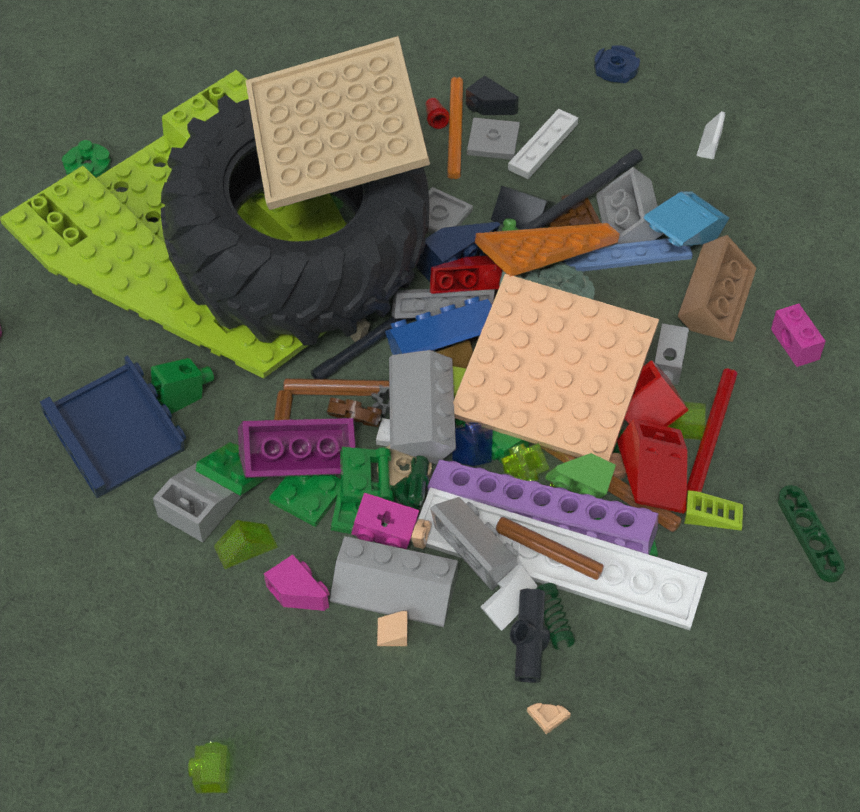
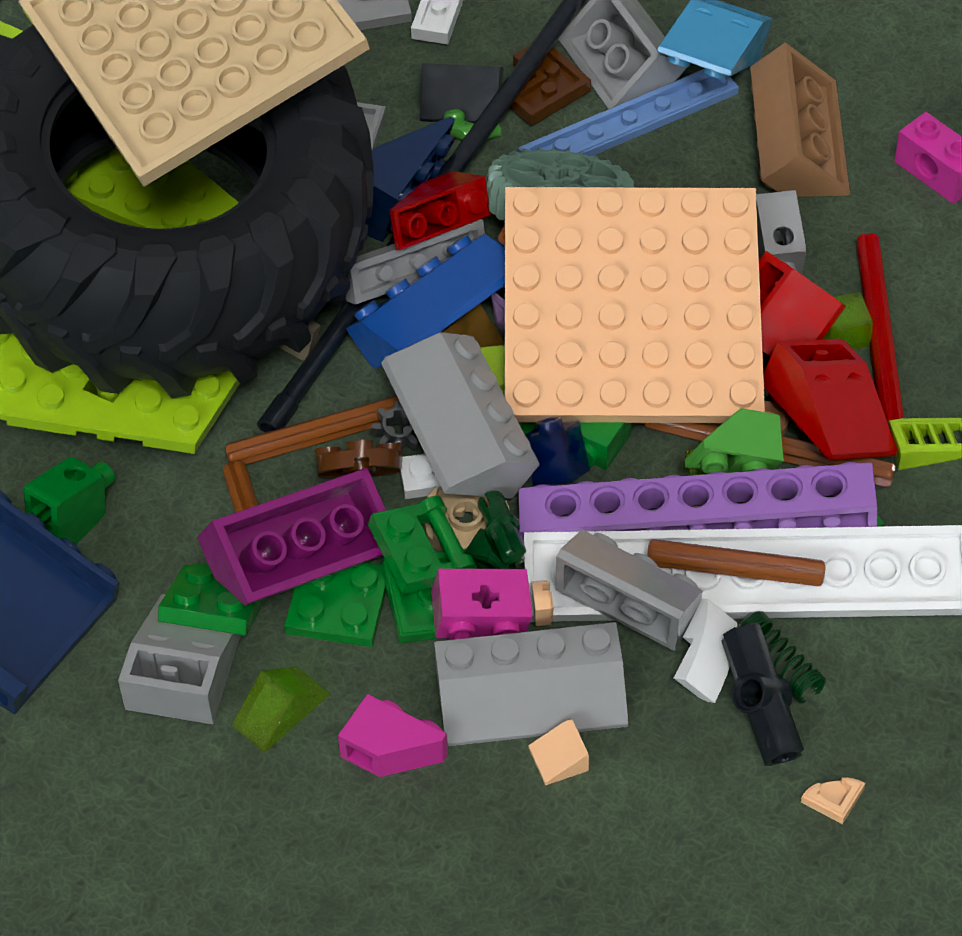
camera: 20 degrees left, 0 degrees up
(525, 462) = (643, 452): clear neon green brick -> none
(533, 248) = (528, 137): orange wing -> none

